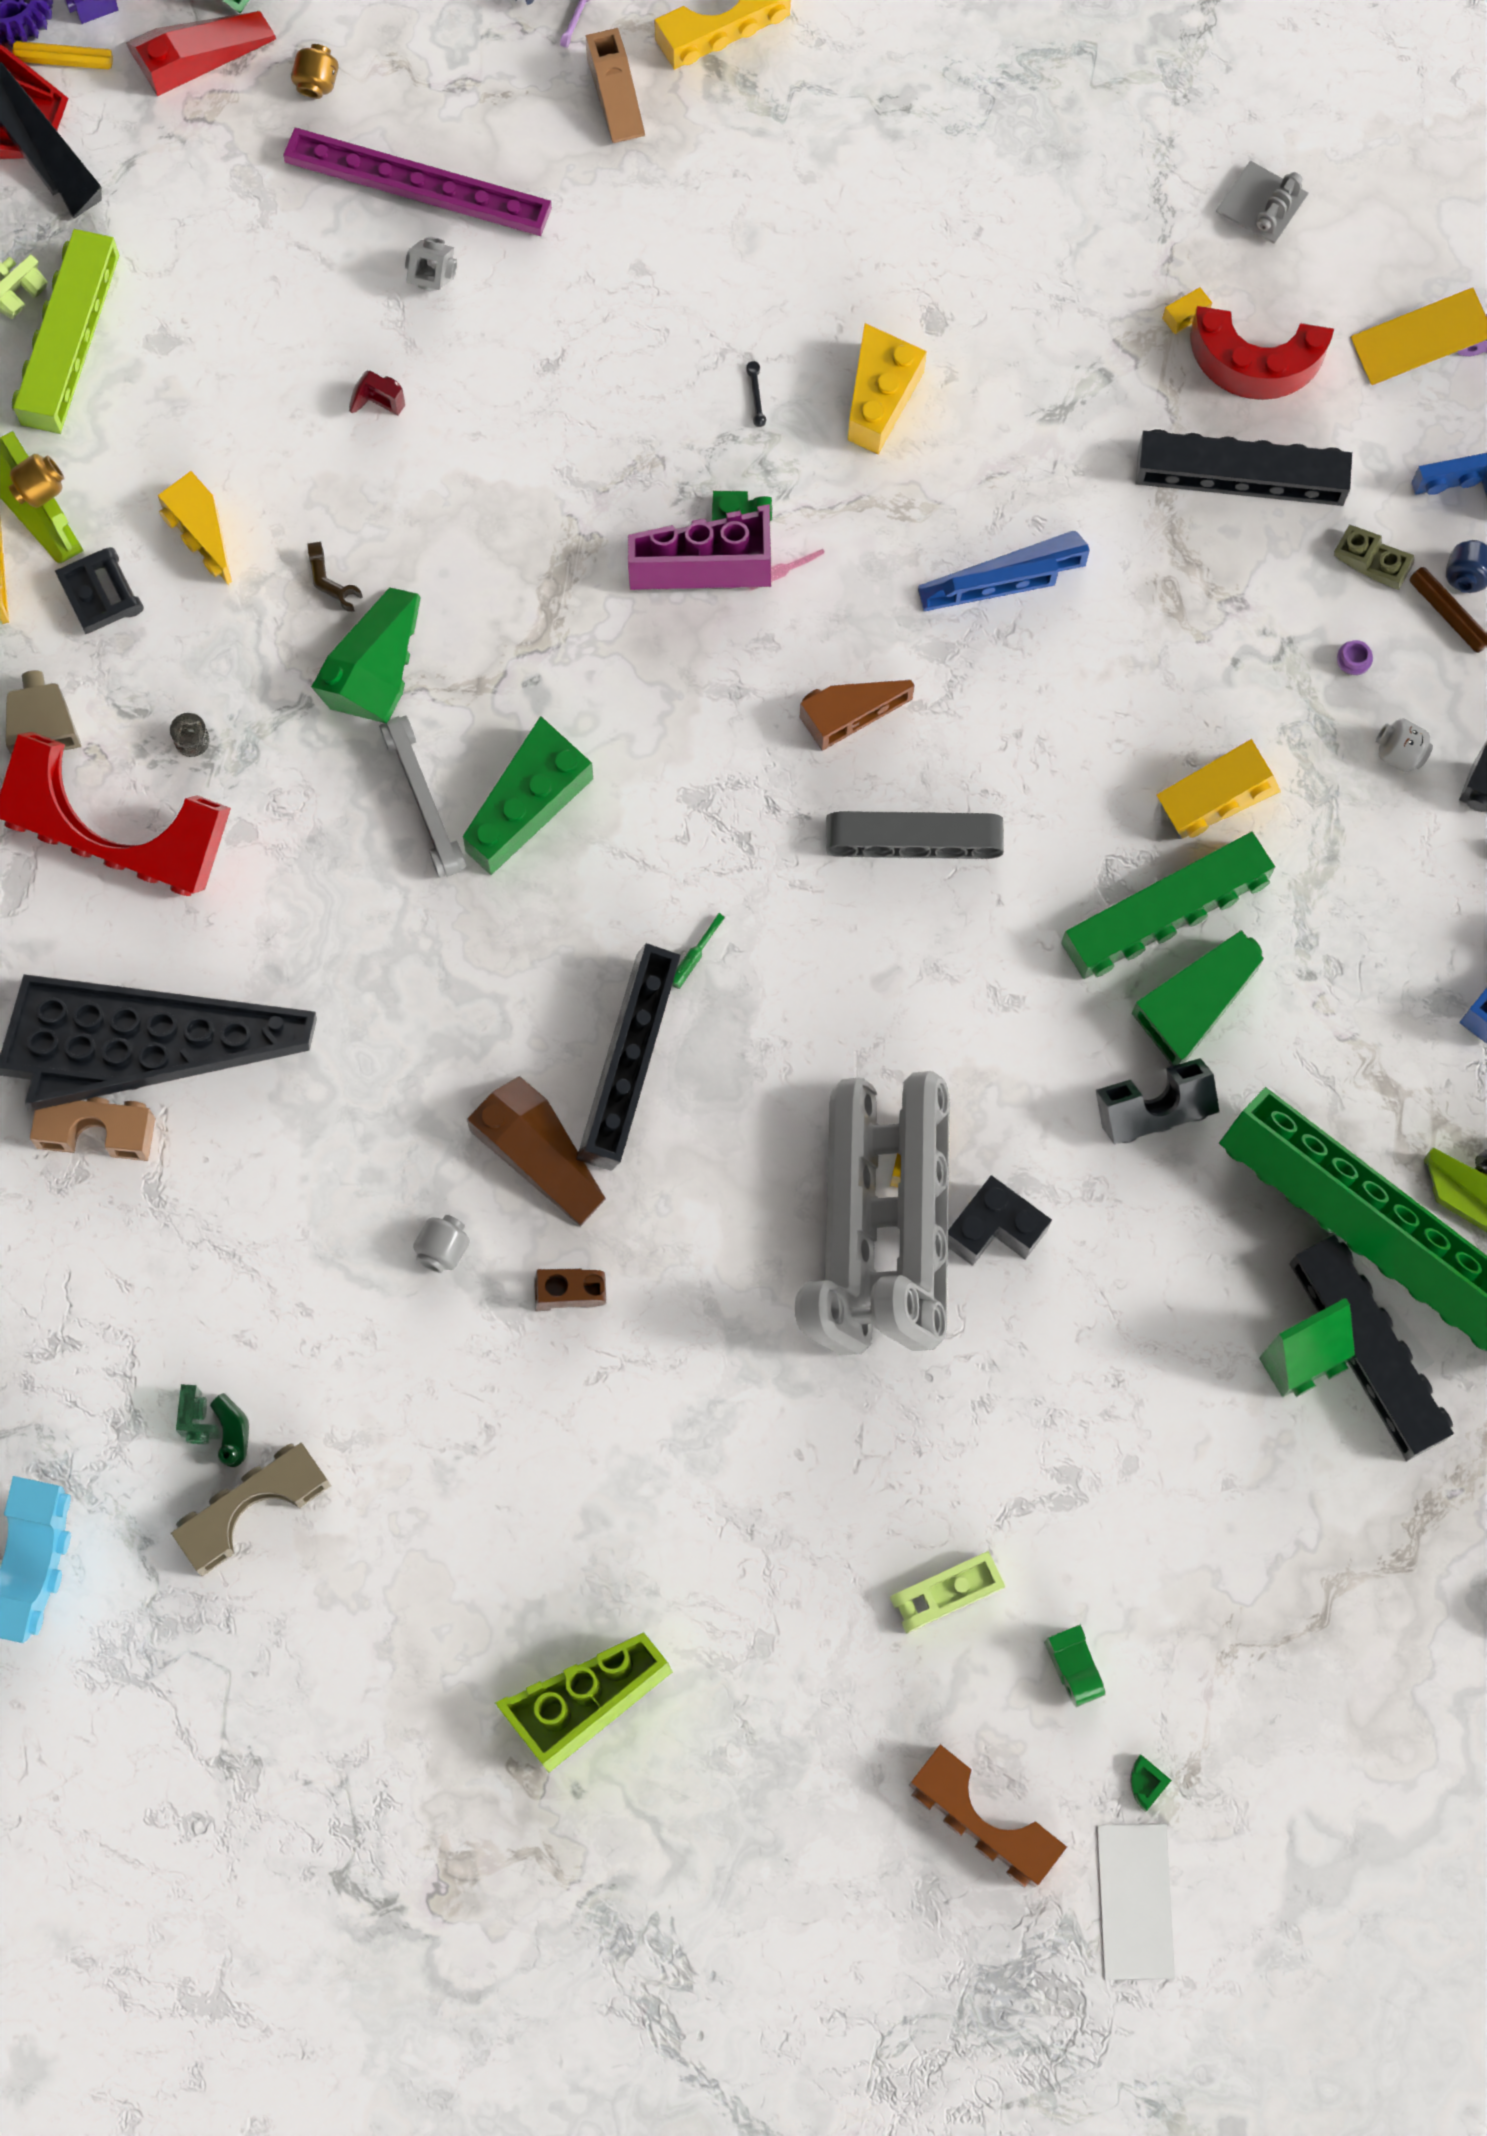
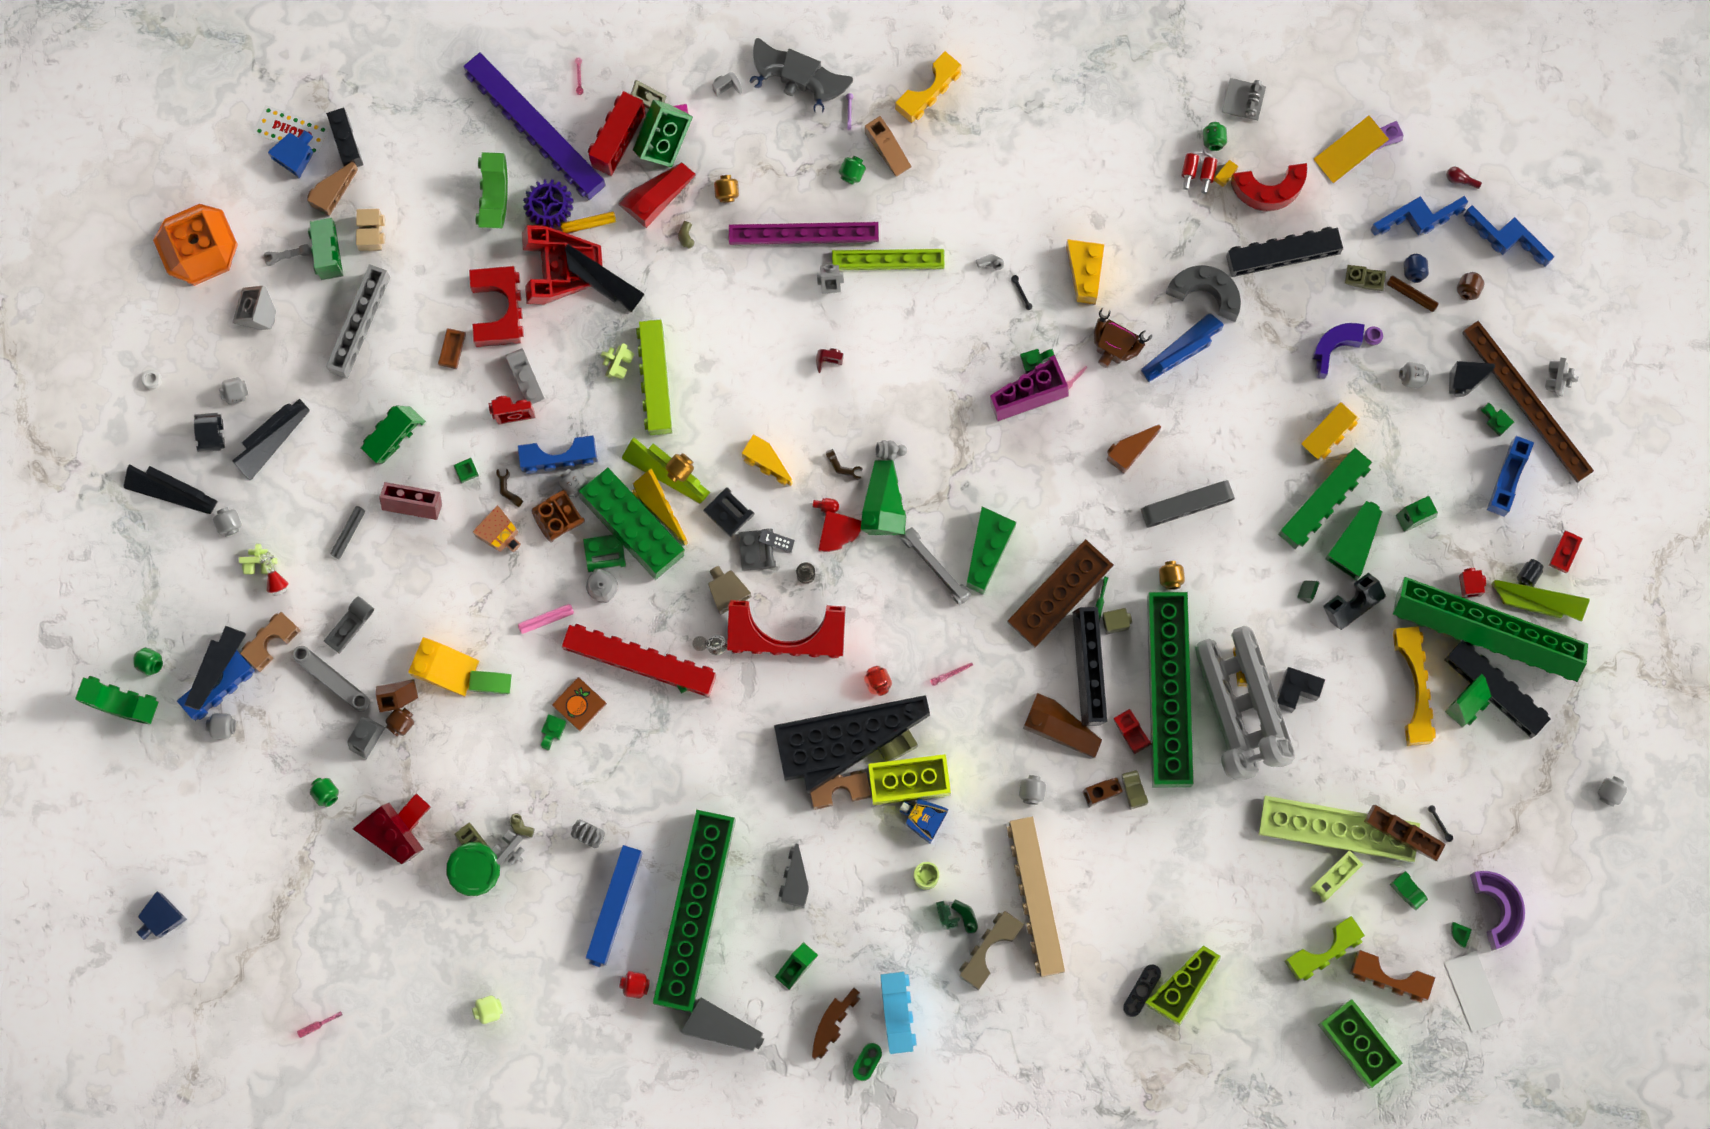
camera: 15 degrees left, 5 degrees up
(111, 667) = (750, 551): none -> dark grey plate
(161, 663) = (776, 540): none -> black sticker
(185, 1331) = (926, 875): none -> yellowish green wheel
(214, 123) = (684, 236): none -> olive arm
(222, 1148) = (909, 779): none -> neon yellow brick
(225, 1228) = (924, 818): none -> torso
(230, 1086) = (898, 746): none -> olive leg
(240, 958) = (878, 680): none -> clear red head
(274, 634) = (826, 505): none -> red cylinder
(274, 683) = (838, 531): none -> red brick
(343, 995) = (943, 677): none -> clear pink piece
(372, 1440) = (1036, 896): none -> tan brick
(422, 577) = (888, 449): none -> light grey piece
(503, 1664) = (1154, 980): none -> black beam
(540, 106) = (852, 170): none -> green head
(548, 269) = (889, 259): none -> lime tile
(626, 915) = (1060, 593): none -> reddish brown plate
(628, 1306) = (1134, 790): none -> olive leg
(665, 1200) = (1131, 731): none -> red slope
(709, 995) = (1116, 621): none -> olive brick
(722, 325) = (990, 260): none -> light grey arm
(758, 1148) = (1170, 689): none -> green brick
(827, 1734) = (1345, 935): none -> lime arch
(839, 949) = (1171, 575): none -> pearl gold head
(877, 1925) = (1360, 1044): none -> bright green brick
(889, 521) = (1116, 342): none -> reddish brown torso
(984, 1506) = (1328, 828): none -> yellowish green plate
(1080, 1057) = (1308, 590): none -> dark green slope
(1089, 470) = (1210, 280): none -> dark grey brick
(1104, 1552) = (1405, 833): none -> reddish brown slope
(1154, 298) = (1207, 172): none -> red piece
(1186, 1592) = (1448, 837): none -> black hinge
(1188, 242) = (1215, 136): none -> green head
(1232, 1208) = (1408, 643): none -> yellow arch
(1260, 1754) = (1510, 904): none -> medium lavender brick
(1284, 637) = (1341, 335): none -> dark purple arch
(1331, 983) = (1418, 513): none -> green torso
(1389, 1141) = (1472, 583): none -> red brick

